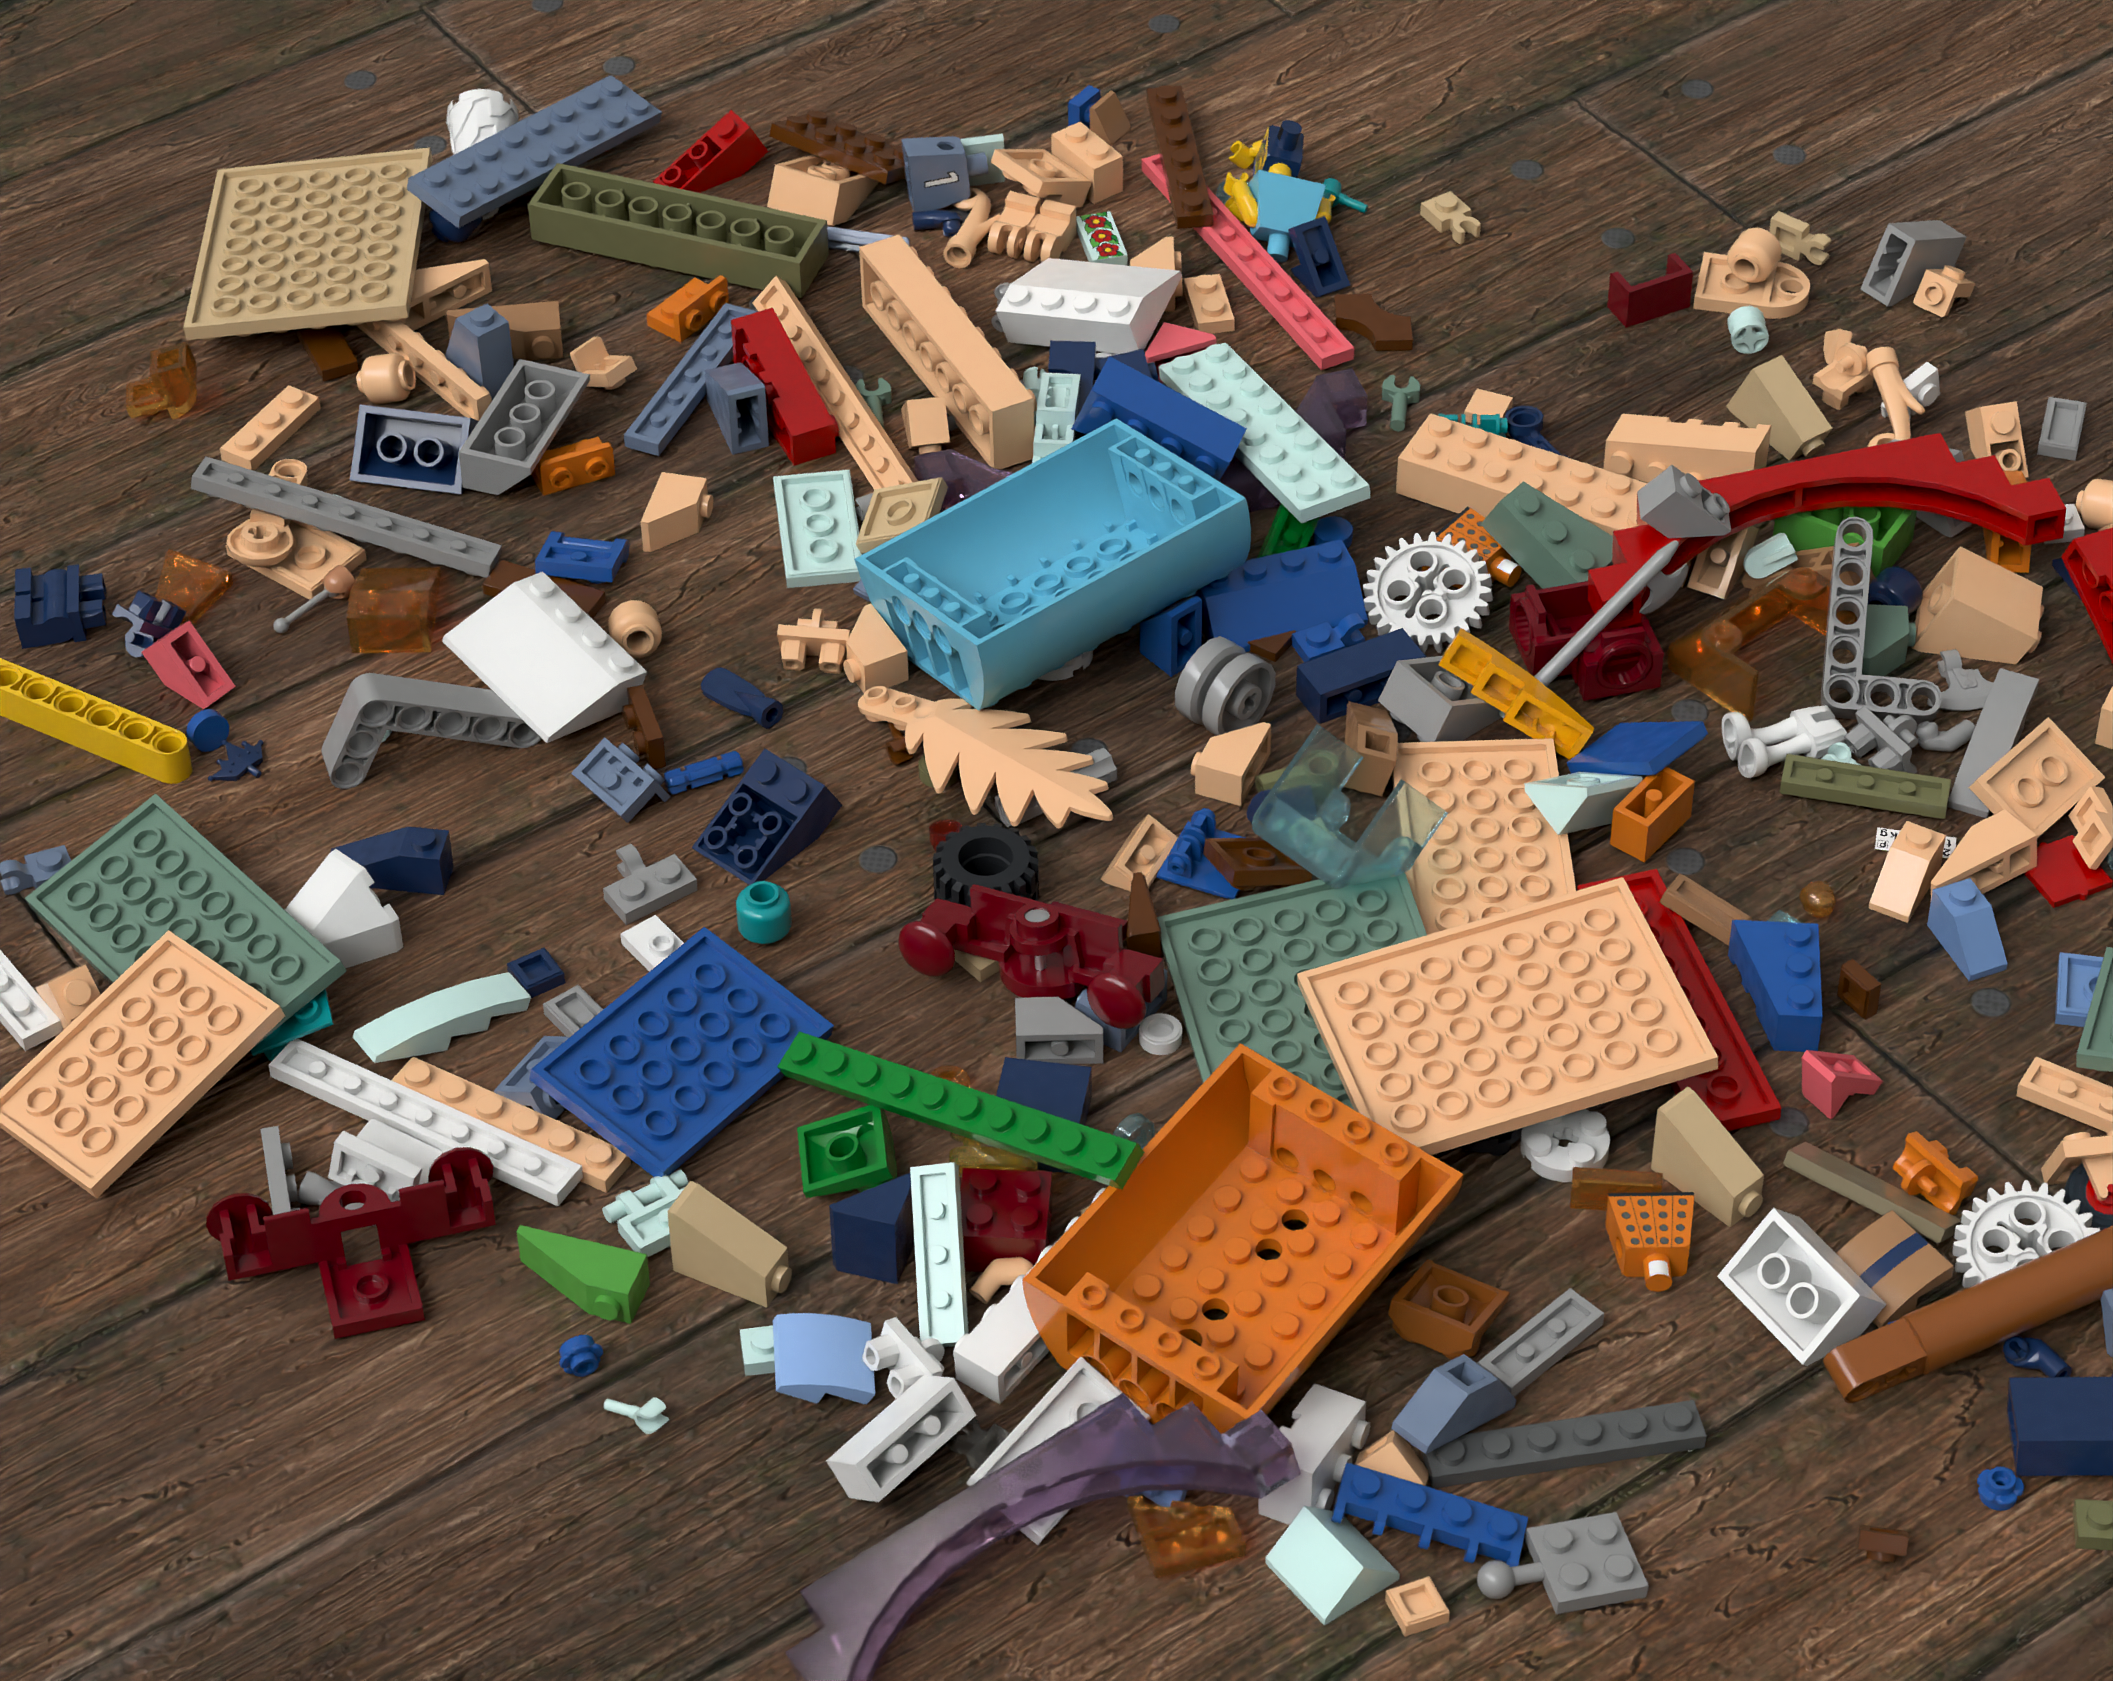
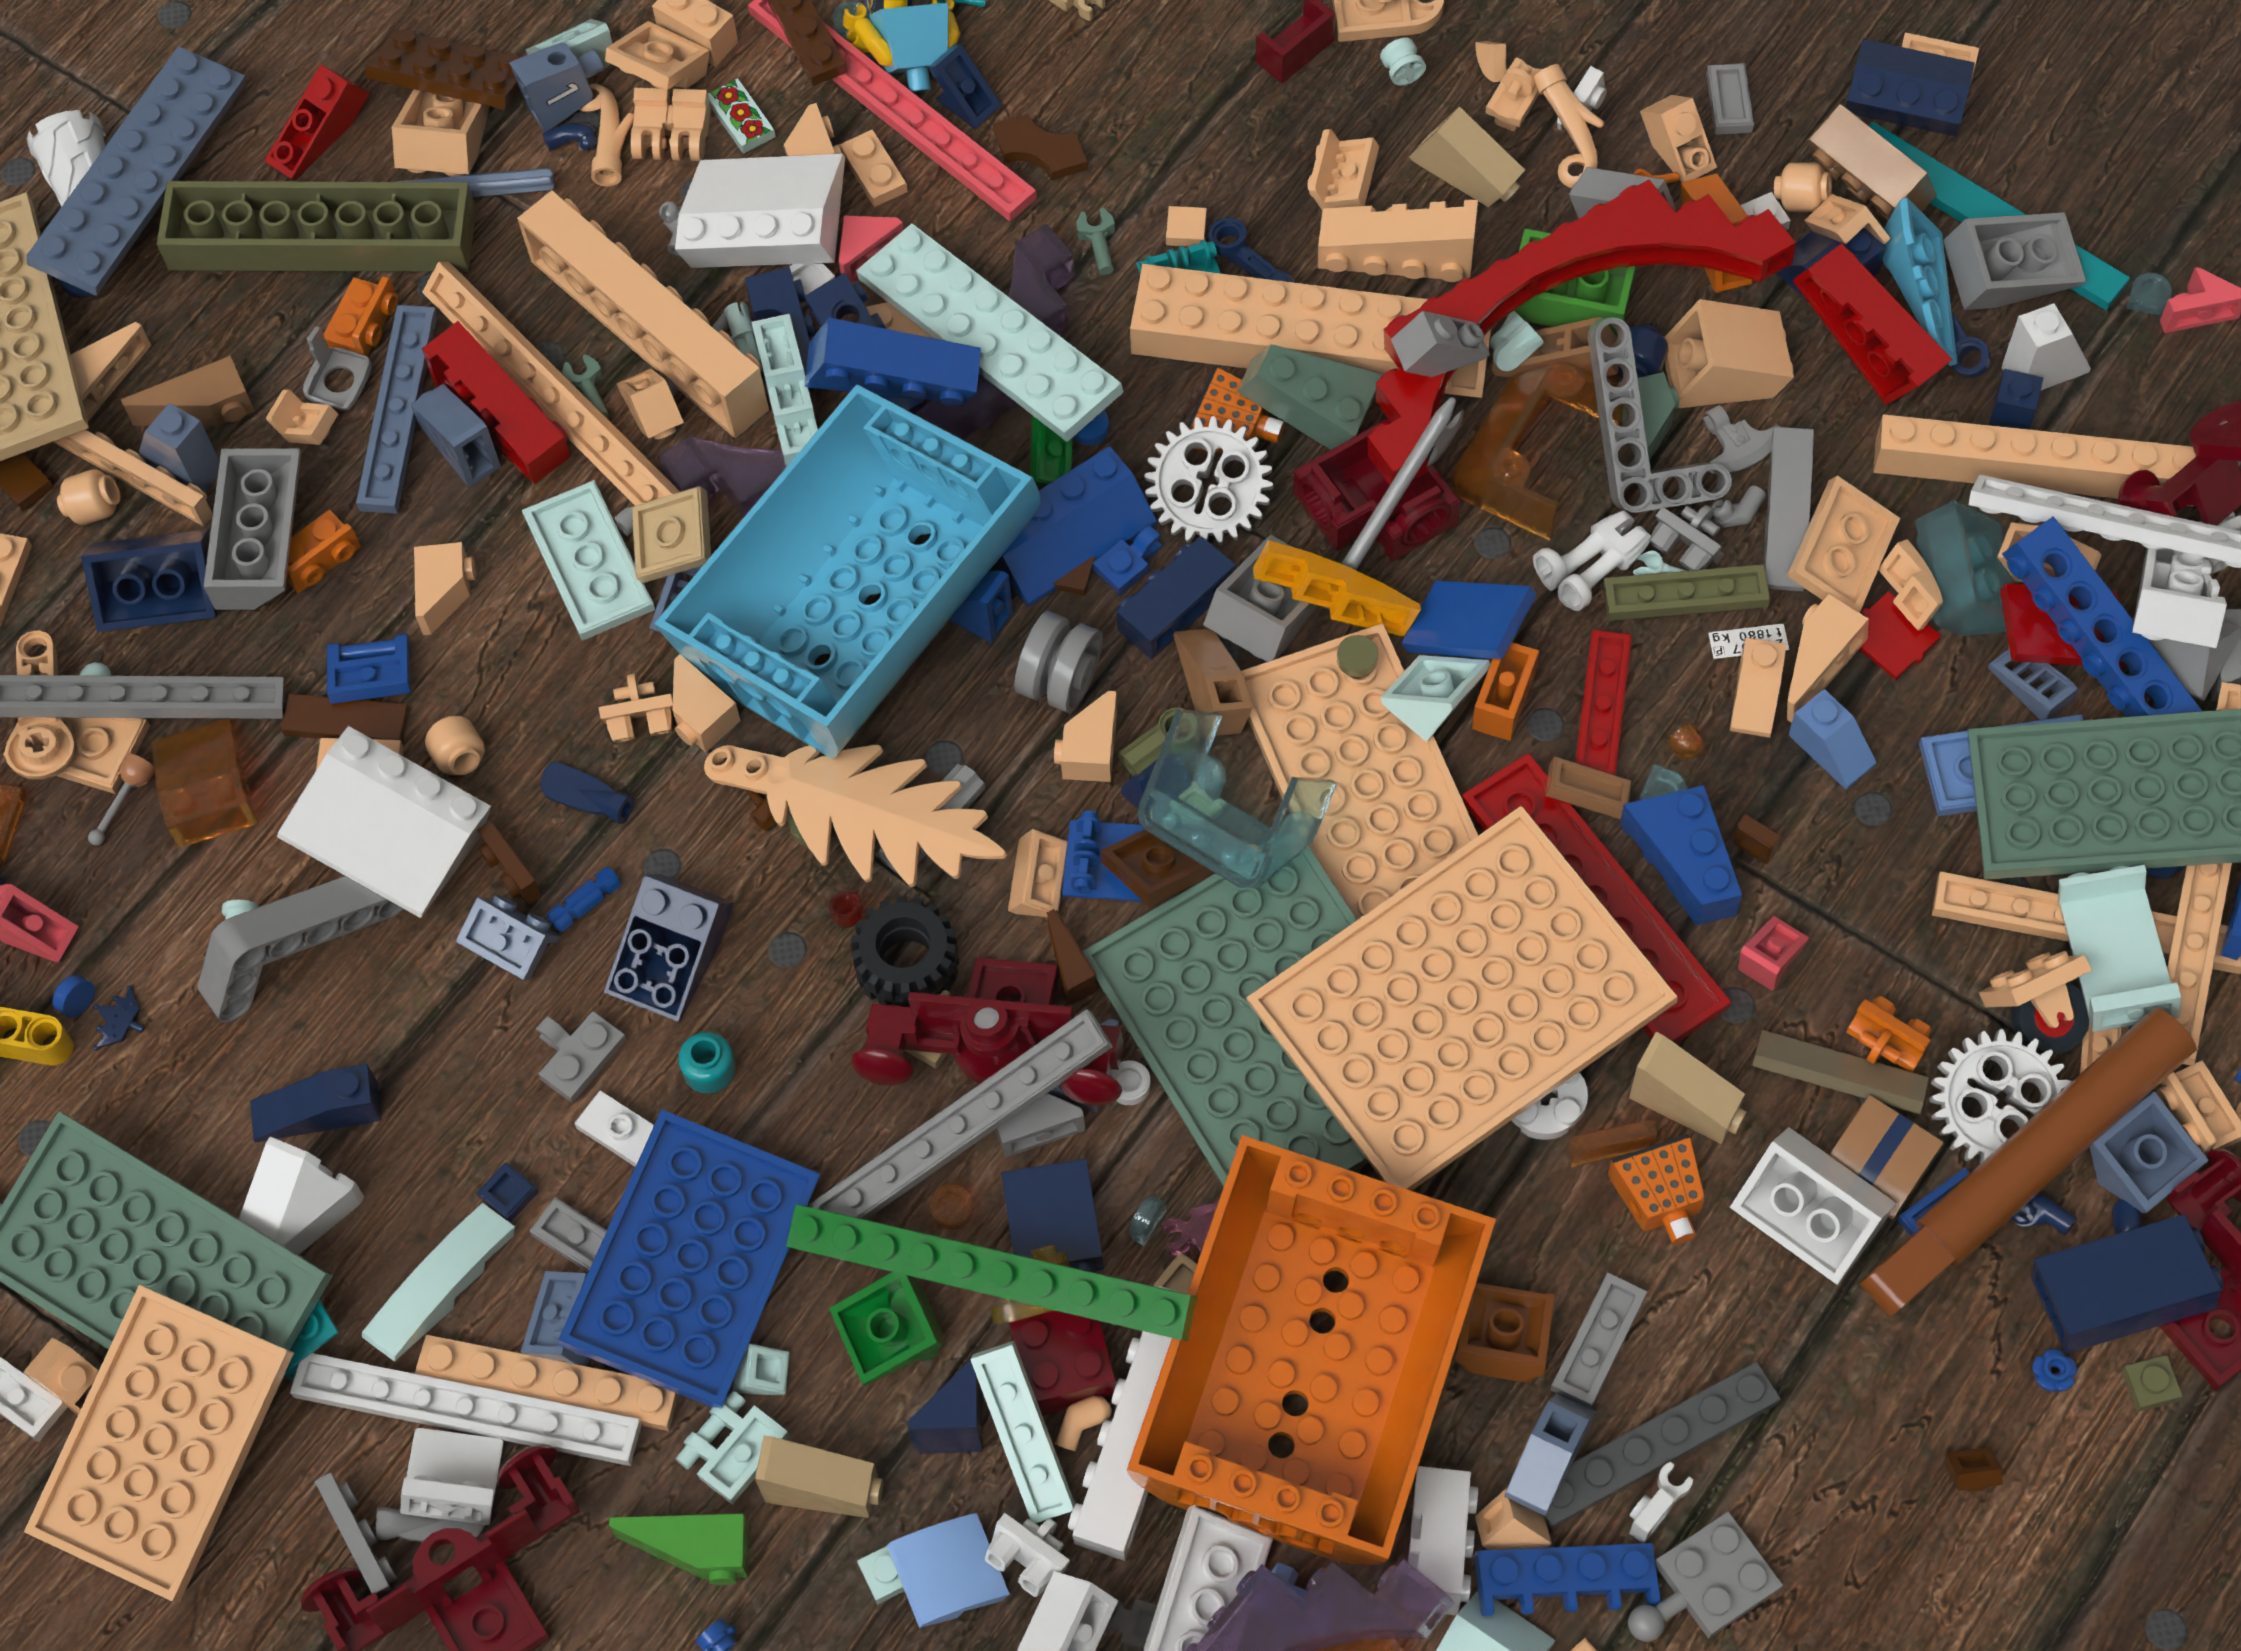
camera: 15 degrees left, 20 degrees up
(646, 332) = (325, 362): none -> light grey piece
(714, 1165) = (762, 1371): none -> light aqua slope
(1000, 995) = (968, 1119): none -> light grey tile
(1516, 753) = (1357, 656): none -> olive tile
(1542, 1489) = (1651, 1512): none -> white plate
(1654, 393) = (1342, 171): none -> light nougat bracket
(1752, 850) = (1603, 700): none -> red tile

